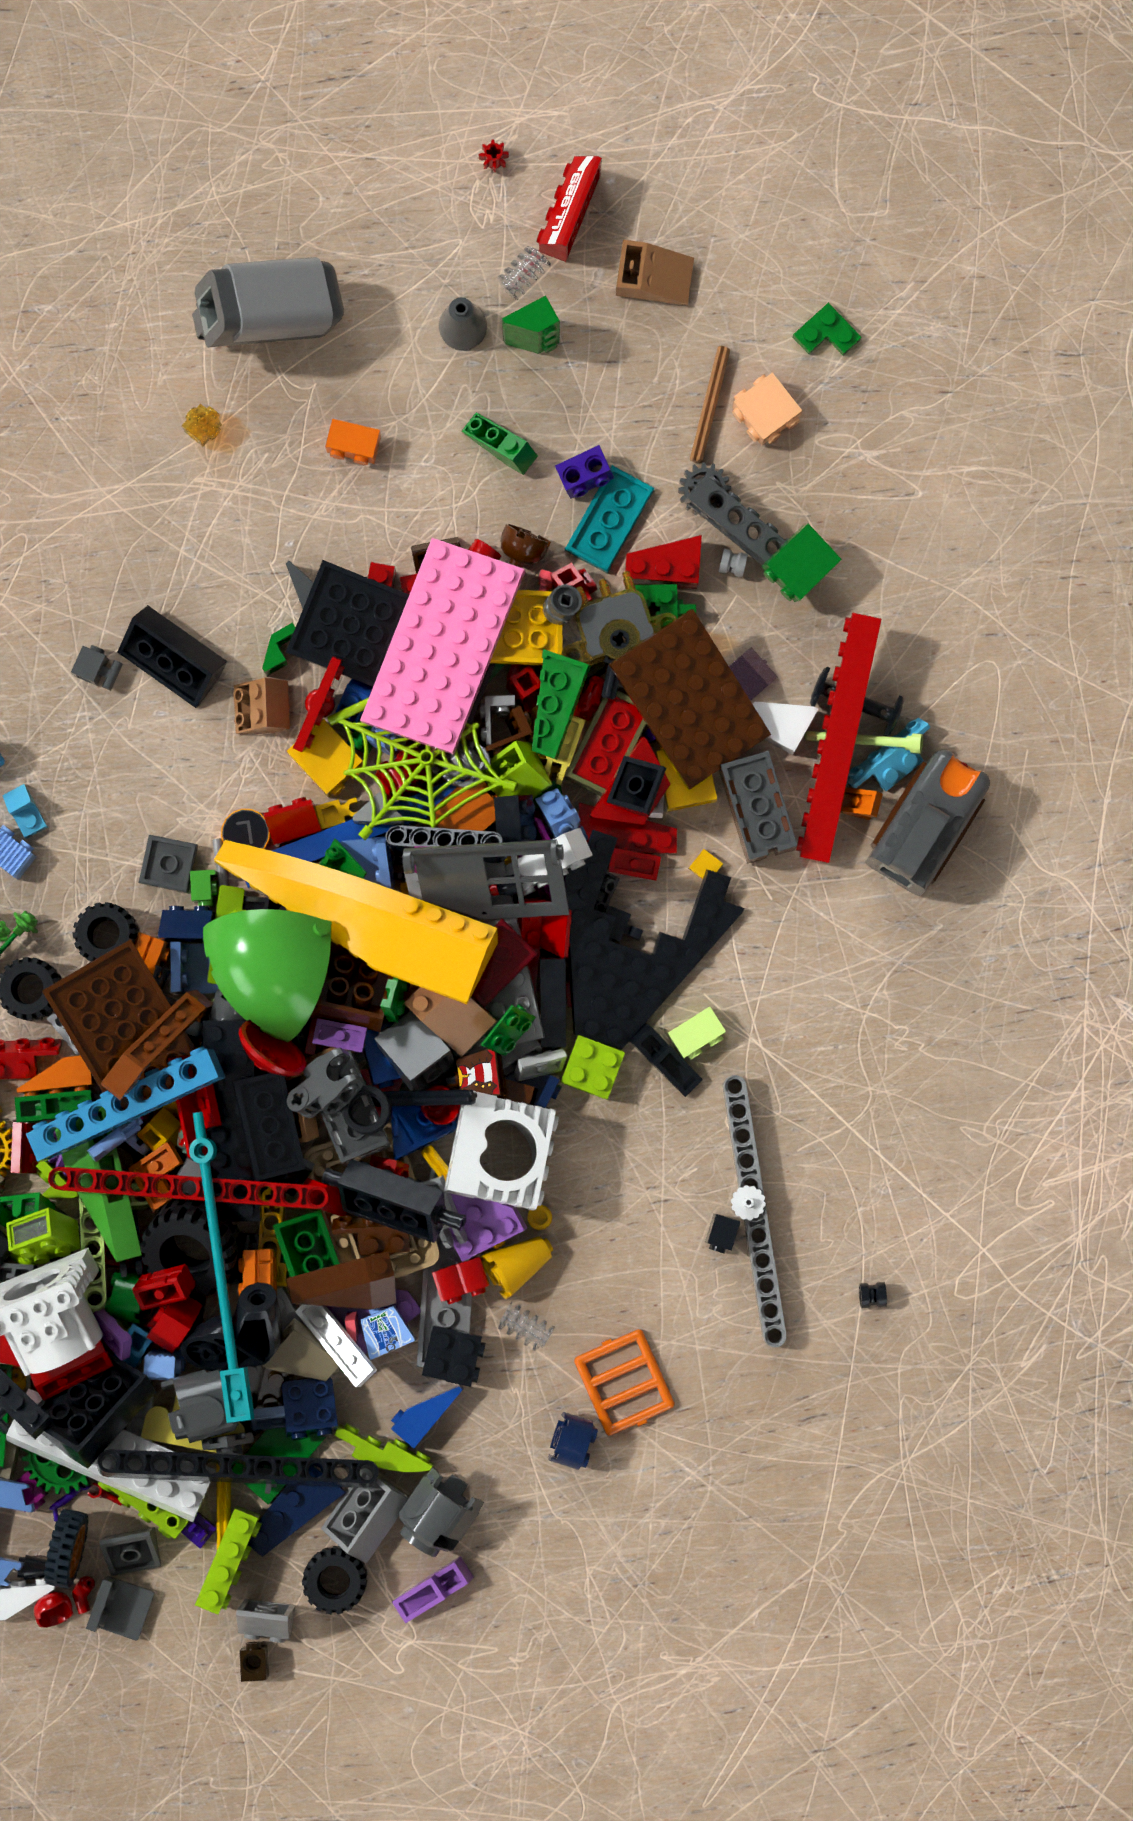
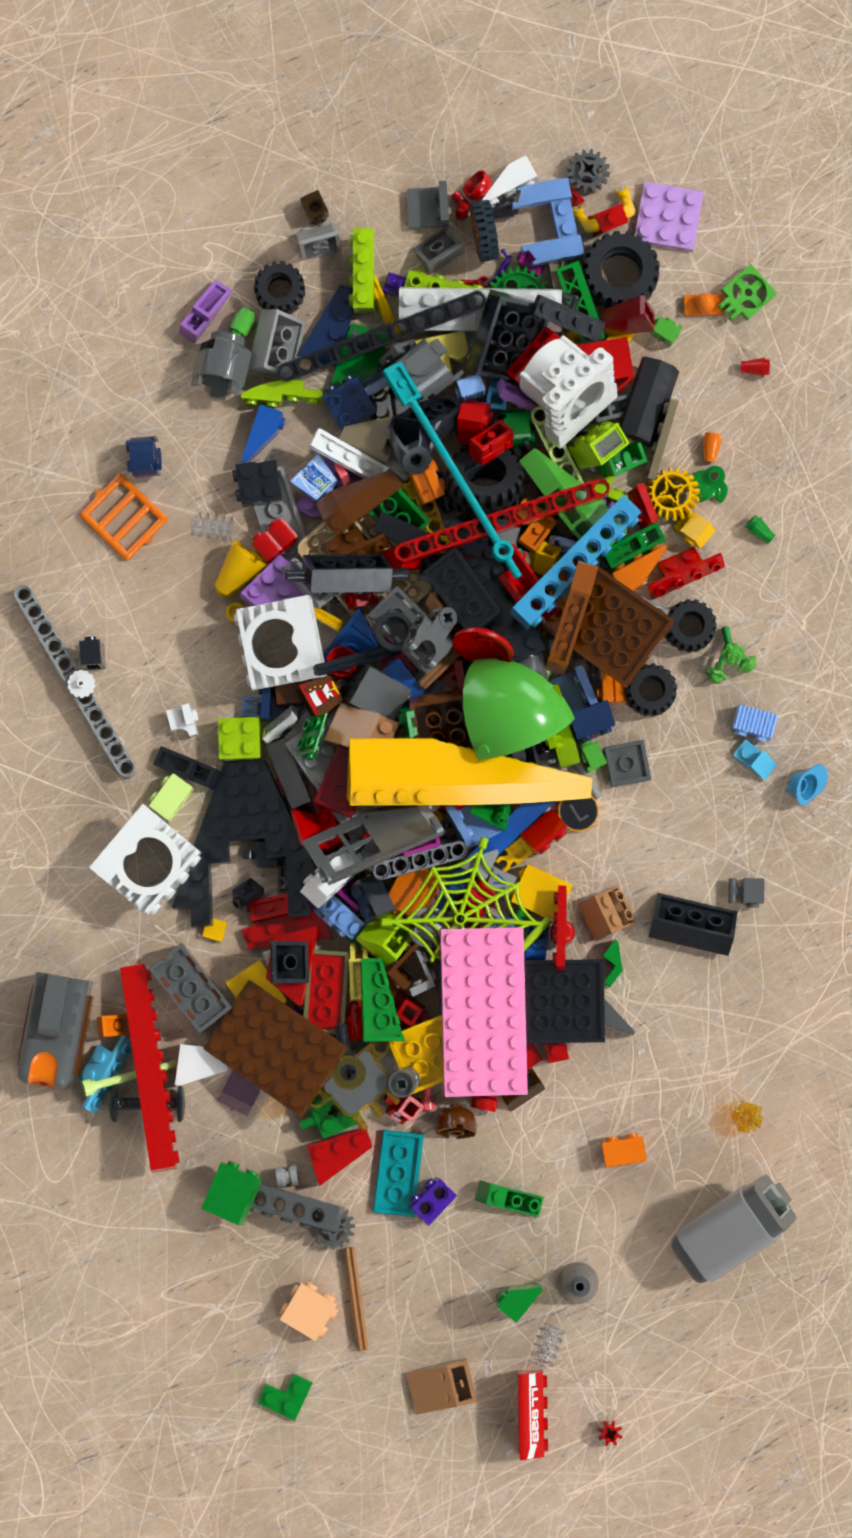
camera: 165 degrees right, 0 degrees up
(114, 1139) = (575, 534): light blue piece -> none
(309, 1227) = (400, 530): none -> black tile
(339, 1035) = (438, 681): medium lavender plate -> none
(359, 791) = (502, 875): none -> light grey brick
(395, 1557) = (242, 322): none -> bright green brick
(565, 1101) = (249, 706): none -> medium blue tile
(647, 1116) = (183, 719): none -> white brick
(654, 889) = (246, 894): none -> black bracket
(740, 1004) = (145, 825): none -> white hose

